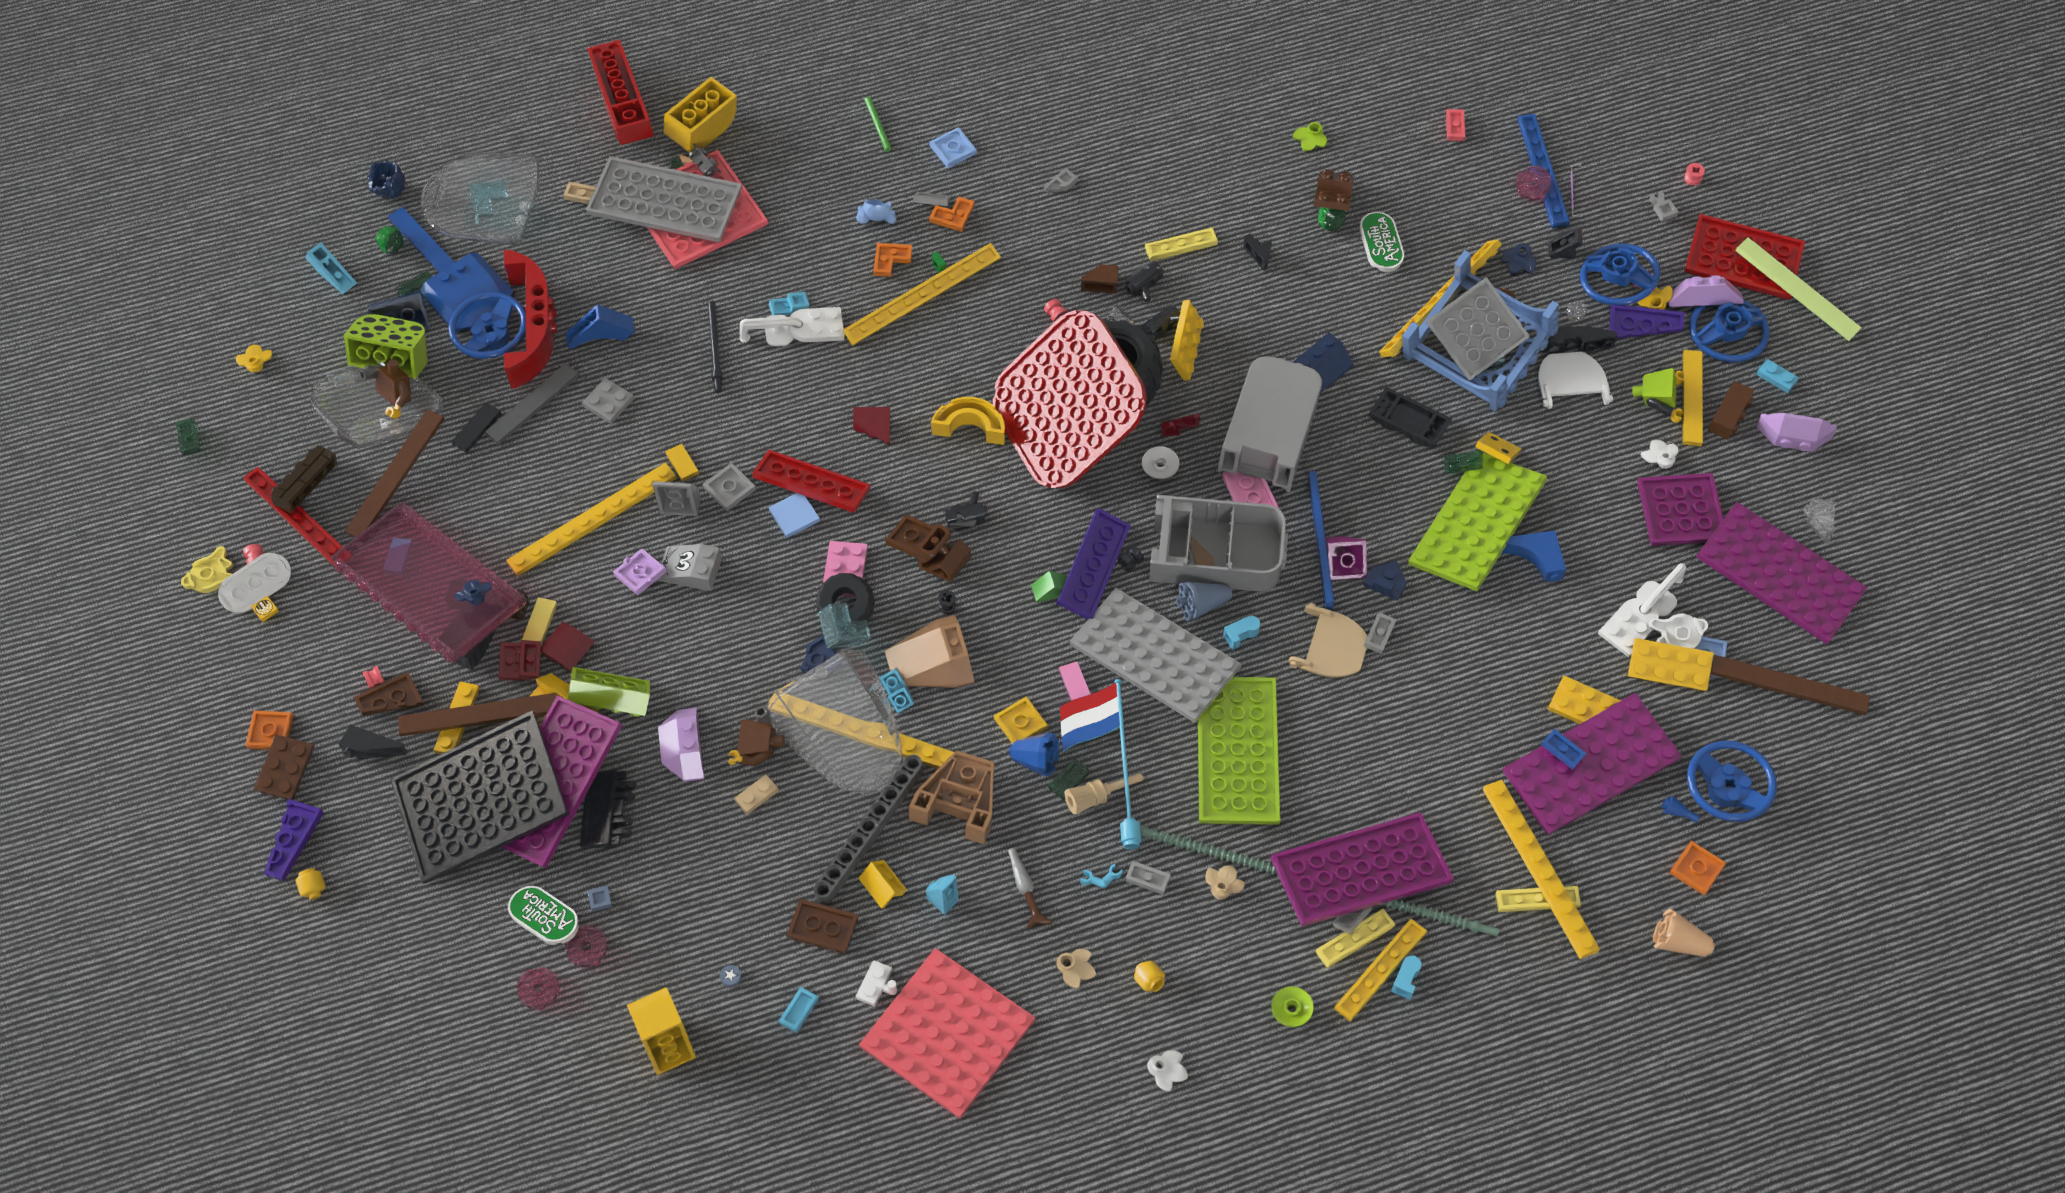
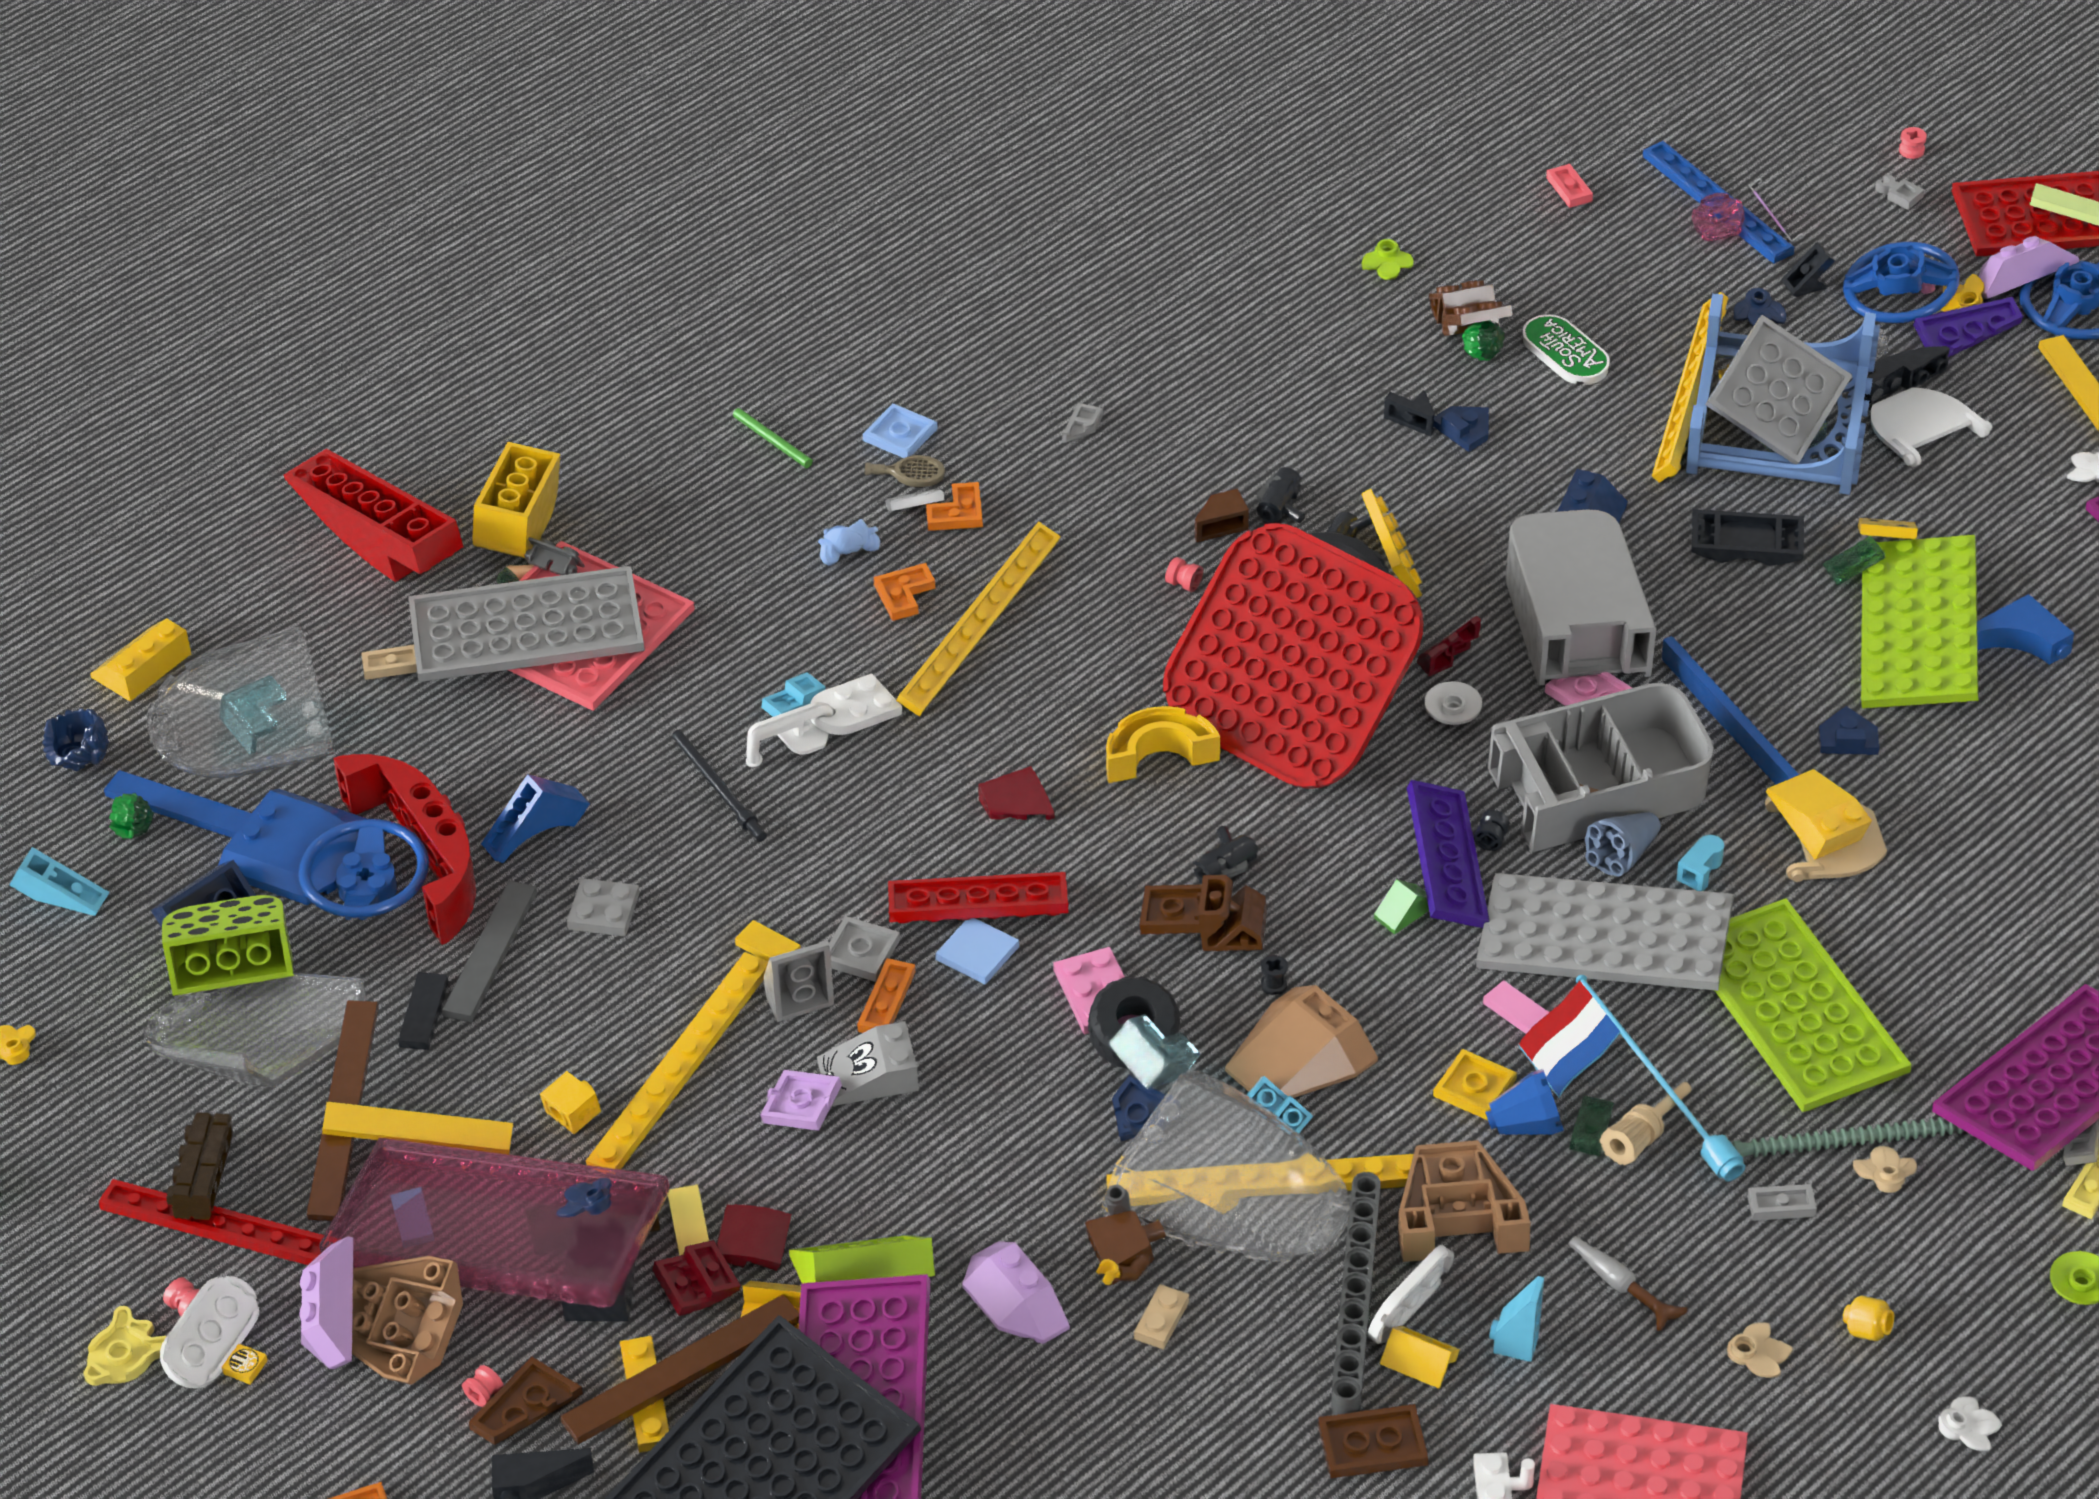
camera: 25 degrees left, 15 degrees down
(315, 593) = (328, 1304): none -> lavender wedge
(349, 618) = (405, 1315): none -> medium nougat wedge
(390, 383) = (263, 992): reddish brown torso -> none
(409, 285) = (209, 853): clear green plate -> none
(427, 503) = (417, 1127): none -> yellow tile
(453, 140) = (144, 660): none -> yellow slope
(517, 520) = (570, 1102): none -> yellow head
(601, 805) = (951, 1421): black hinge -> none
(725, 524) = (887, 995): none -> orange plate
(894, 845) = (1410, 1294): none -> white tile
(935, 172) = (896, 469): none -> dark tan piece
(938, 262) = (978, 572): green tile -> none
(1103, 883) = (1715, 1235): medium azure arm -> none
(1181, 244) = (1298, 441): light yellow tile -> none
(1287, 271) = (1464, 425): none -> dark blue plate
(1328, 628) = (1820, 812): none -> yellow slope
(1346, 557) = (1783, 721): magenta slope -> none
(1379, 632) = (1884, 797): light grey plate -> none
(1660, 391) = (2046, 395): lime torso -> none

